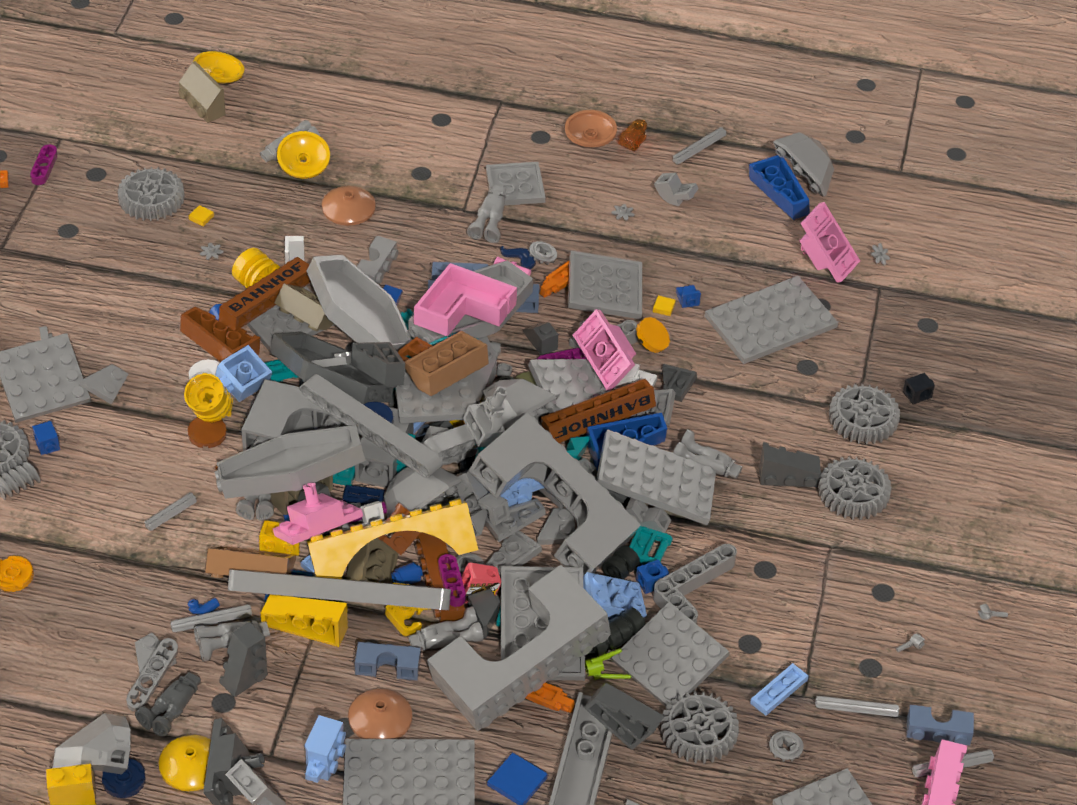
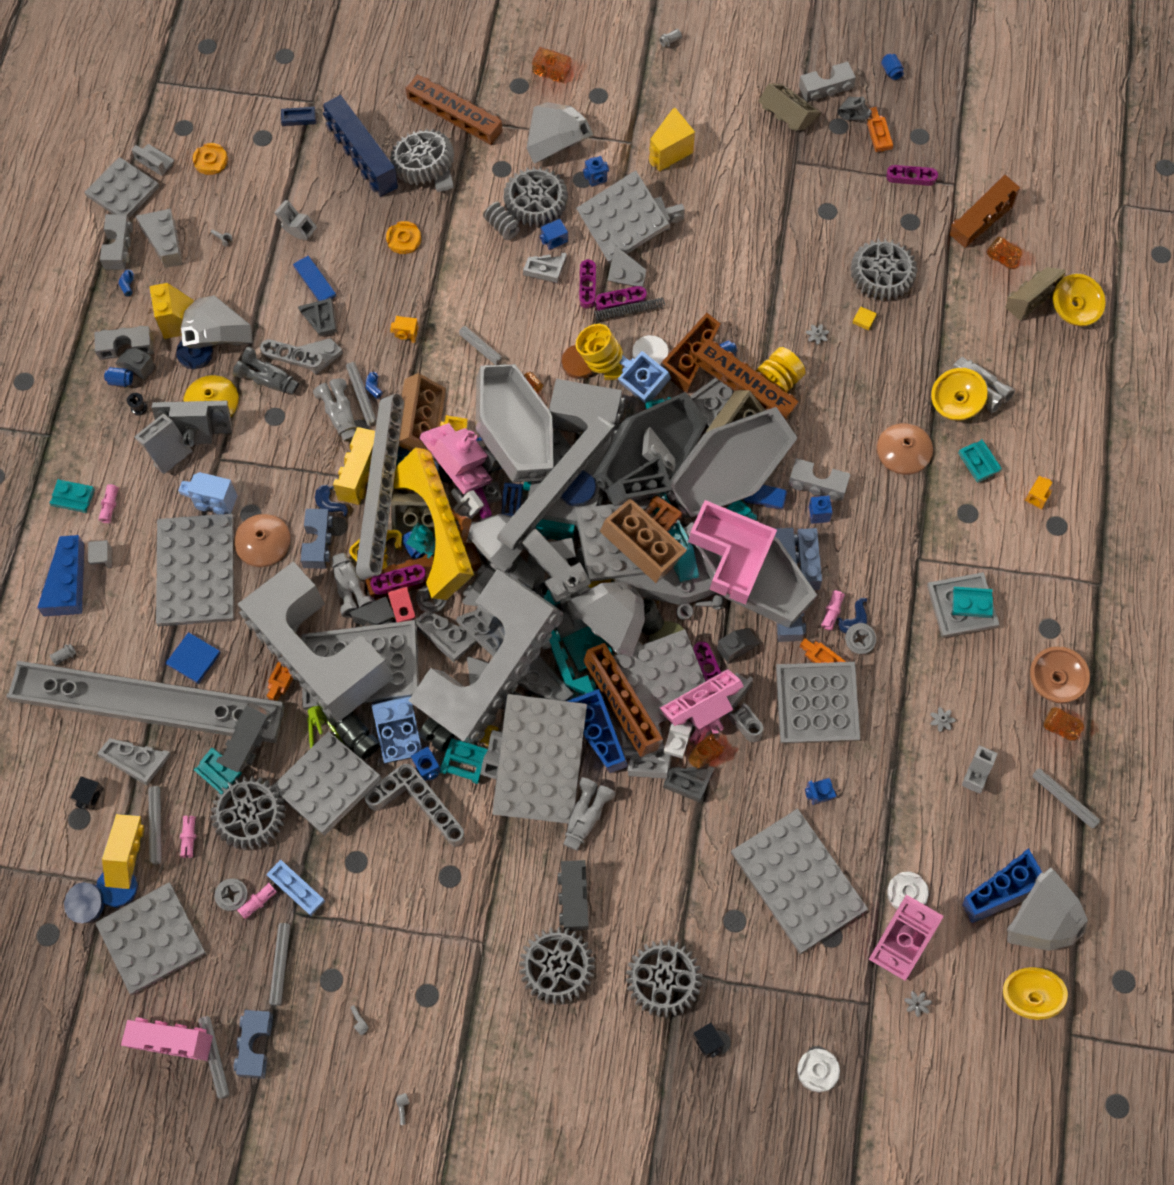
camera: 90 degrees right, 20 degrees up
(50, 657) = (314, 279): none -> blue tile
(85, 449) = (545, 267): none -> light grey wing
(104, 114) = (985, 211): none -> dark orange wedge
(104, 651) = (320, 316): none -> dark grey wing
(127, 415) = (592, 289): none -> magenta beam
(134, 399) = (622, 292): none -> magenta beam
(138, 571) = (405, 328): none -> light orange brick
(150, 111) = (1003, 251): none -> clear orange piece
(153, 375) = (617, 309): none -> dark grey piece
(246, 660) = (301, 421): dark grey wedge -> none
(294, 248) = (810, 397): white panel -> none
(342, 657) = (322, 499): none -> dark blue piece
(371, 155) = (979, 461): none -> teal plate
(406, 560) = (422, 540): none -> teal plate
(408, 263) = (820, 509): none -> blue brick
(410, 121) = (1039, 492): none -> light orange brick
(493, 209) = (908, 580): light grey piece -> none
(516, 173) = (972, 602): none -> teal plate
(650, 363) = (706, 751): none -> clear orange piece
(651, 755) = (215, 773): none -> teal plate
(653, 334) = (749, 753): light orange tile -> none
(664, 305) = (802, 766): yellow tile -> none
(723, 784) = (187, 836): none -> bright pink pin
(781, 251) = (907, 884): none -> white tile
(793, 723) = (257, 901): none -> bright pink pin
(871, 179) = (1035, 993): none -> yellow dish
(939, 324) = (818, 1070): none -> white tile

